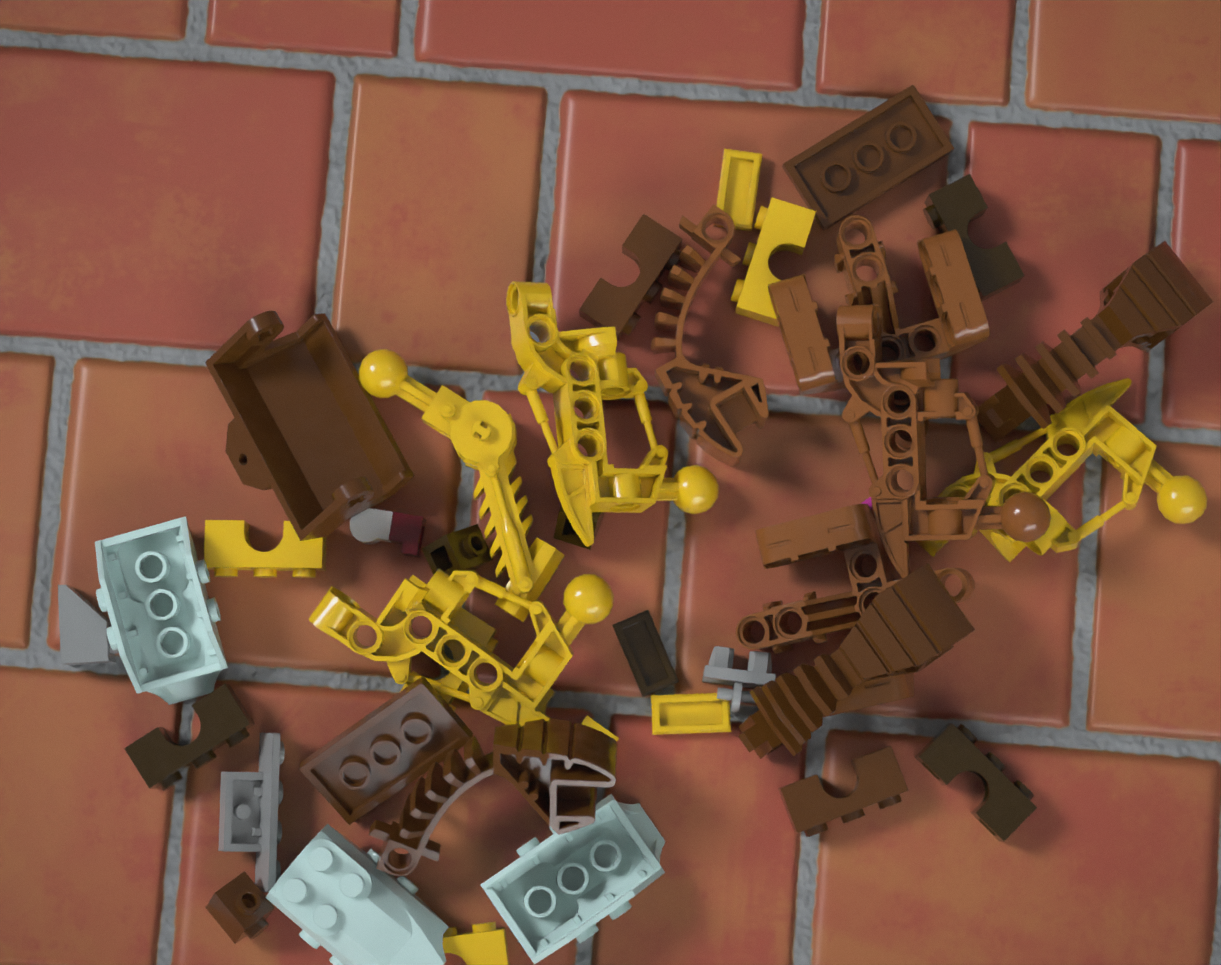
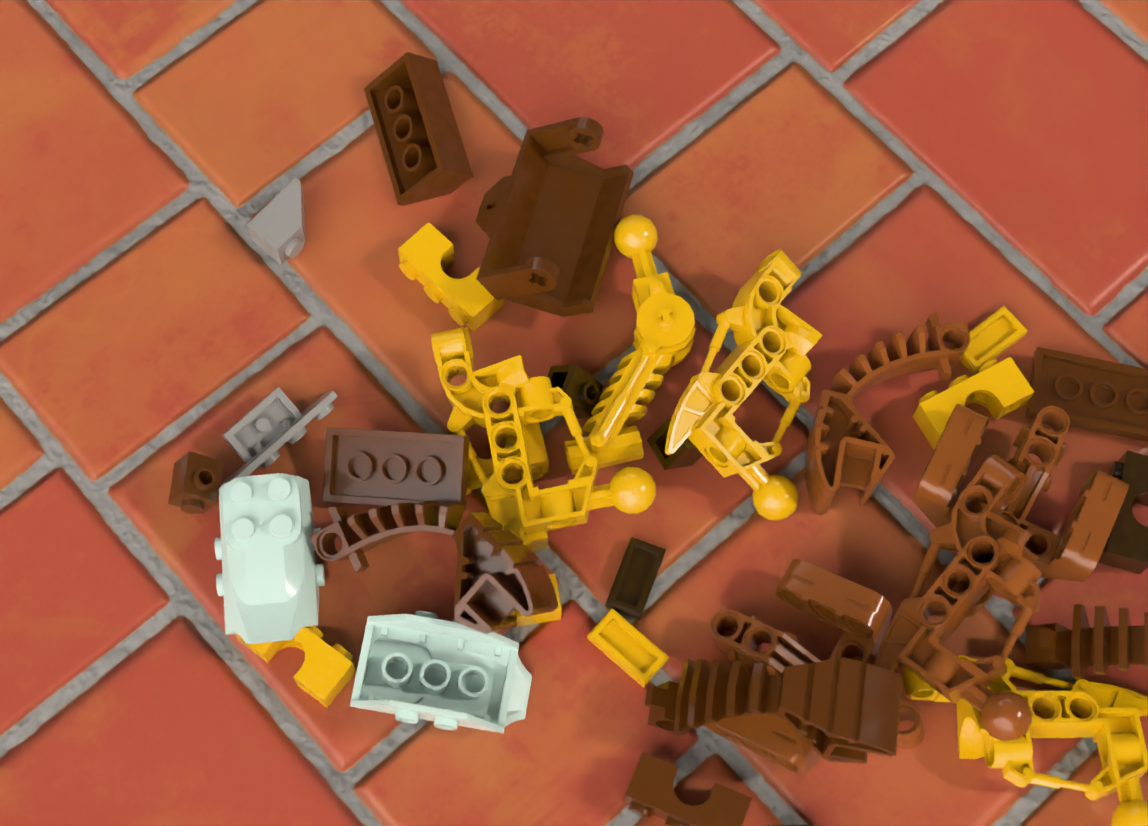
camera: 40 degrees right, 15 degrees down
(109, 442) = (417, 130): none -> reddish brown slope
(161, 610) = (339, 252): light aqua slope -> none
(221, 721) = (307, 358): dark brown arch -> none
(388, 526) = (543, 337): leg -> none
(654, 251) = (842, 339): reddish brown arch -> none
(721, 672) = (679, 647): light grey hips -> none

